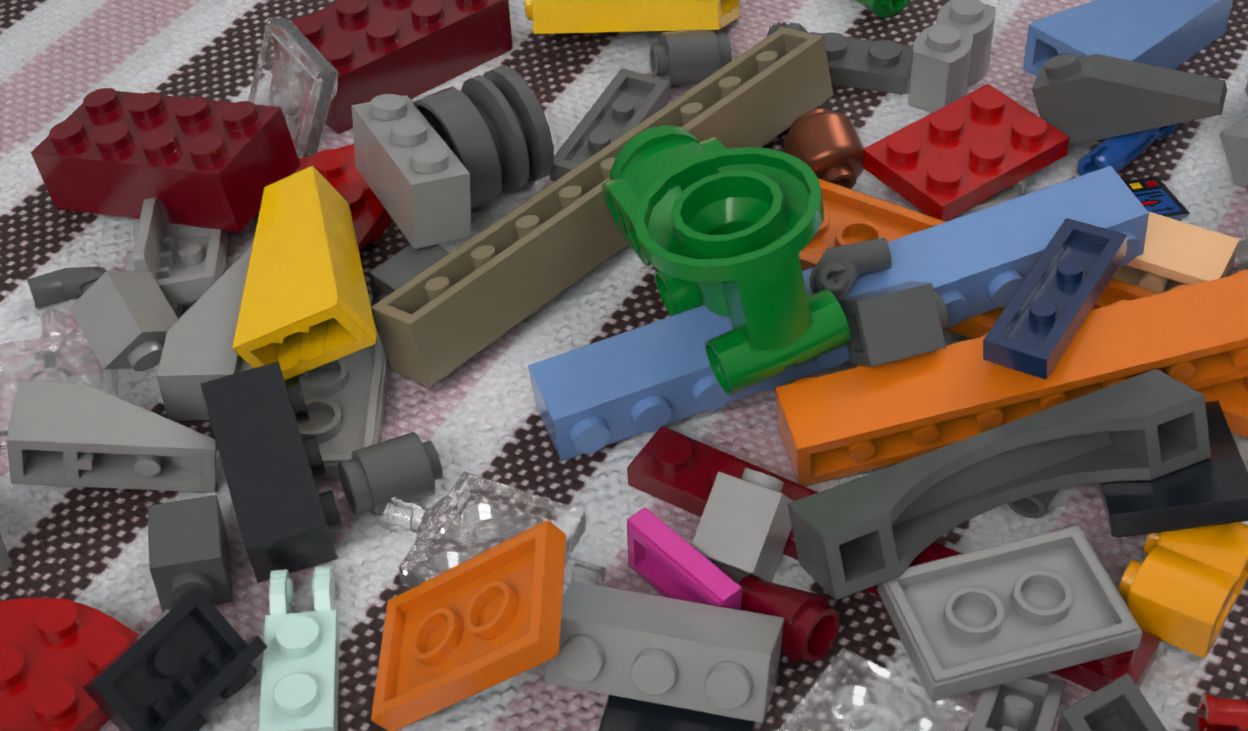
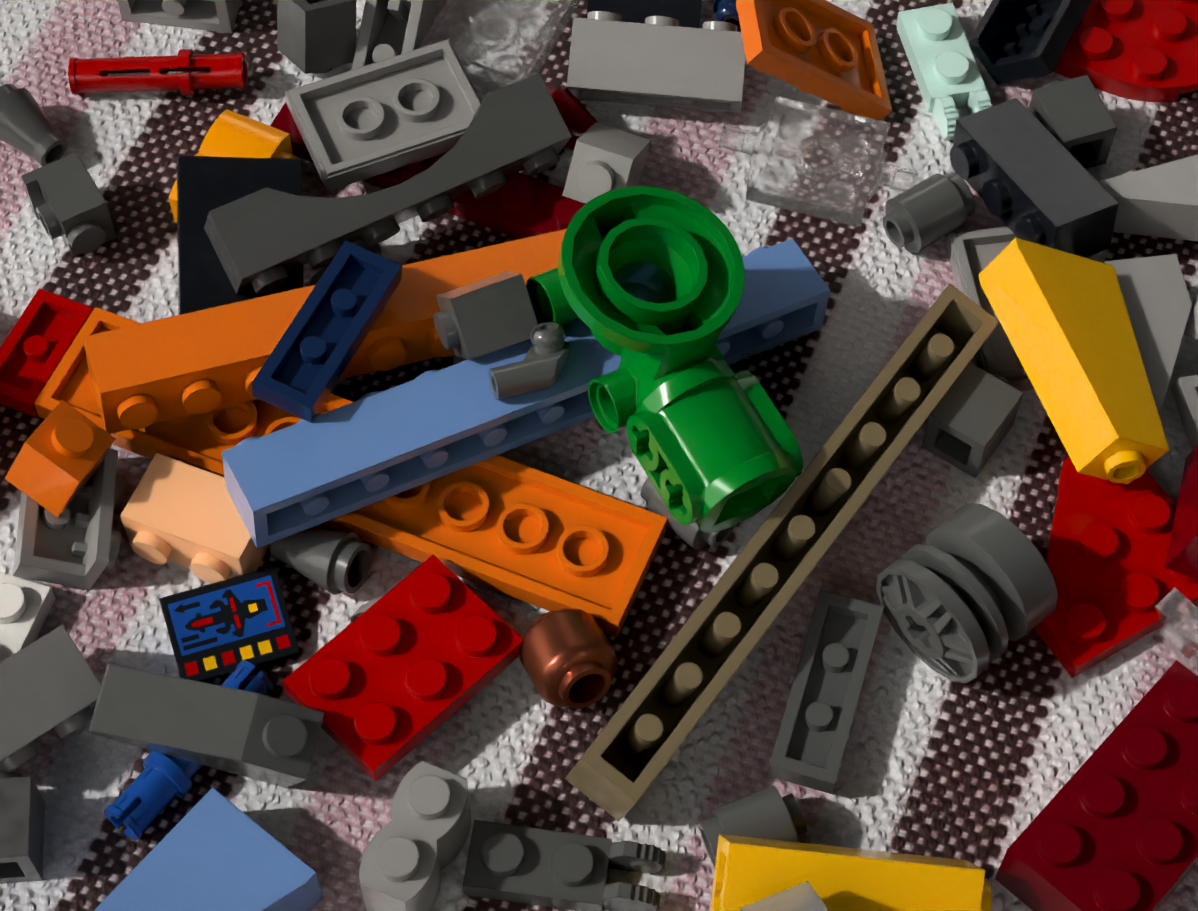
camera: 170 degrees right, 15 degrees up
(411, 171) = (1008, 472): light grey brick -> none
(675, 565) = (671, 151): dark pink tile -> none

